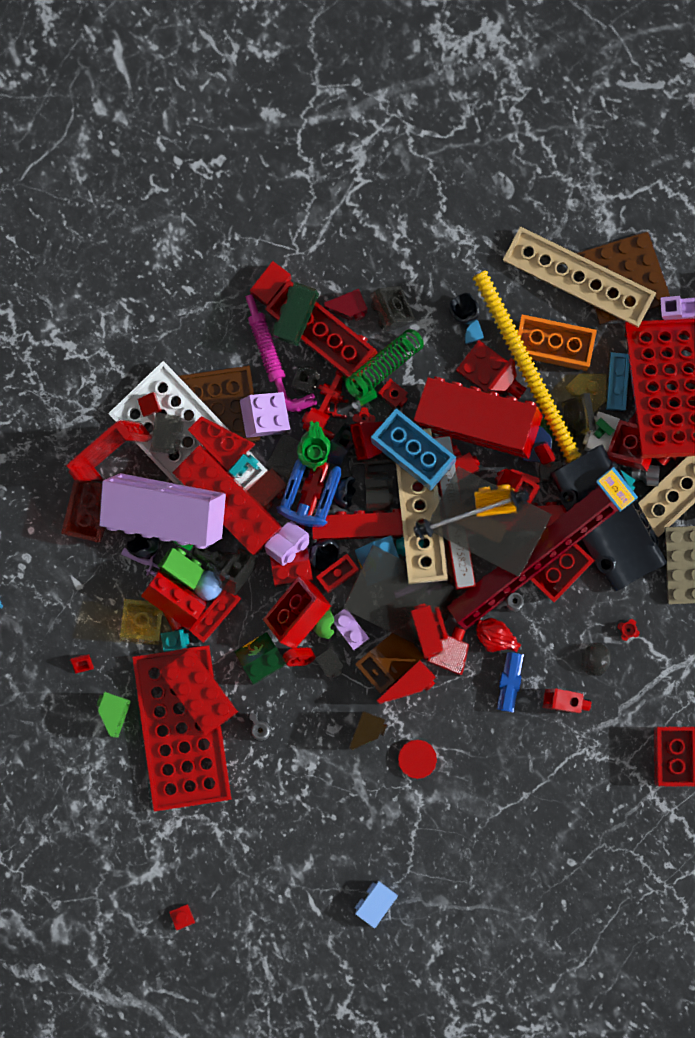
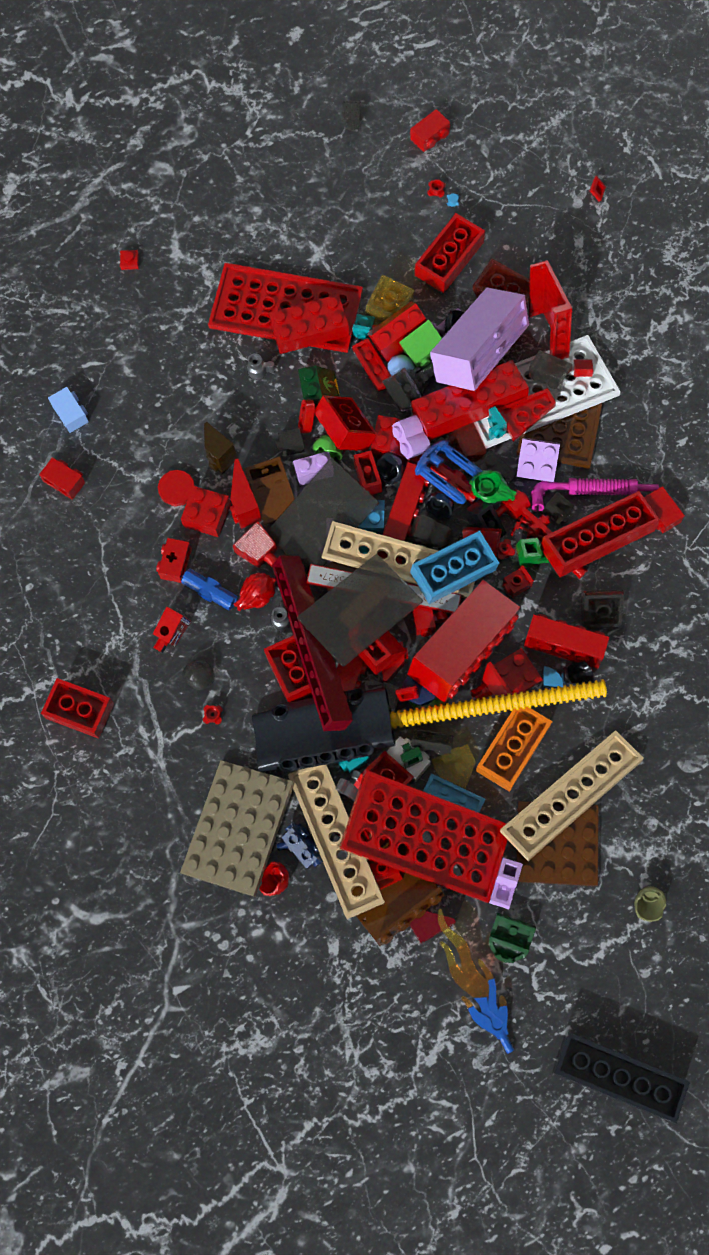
camera: 115 degrees right, 10 degrees down
(64, 581) = (449, 253): none -> red brick
(82, 663) = (374, 248): red slope -> none
(113, 712) = (319, 254): bright green slope -> none
(295, 313) = (623, 509): clear green brick -> none
(348, 306) = (617, 572): dark red slope -> none
(408, 345) = (532, 534): green piece -> none
(427, 528) = (369, 628): black axle -> none
(429, 629) = (281, 524): red brick -> none
(433, 717) = (205, 511): none -> red brick
(439, 328) = (566, 641): none -> red brick
(451, 876) = (62, 478): none -> red brick
(487, 497) = (374, 616): light orange brick -> none
(503, 721) = (174, 549): none -> red brick
(616, 489) = (344, 739): slope -> none
(647, 181) = (650, 903): none -> olive hair

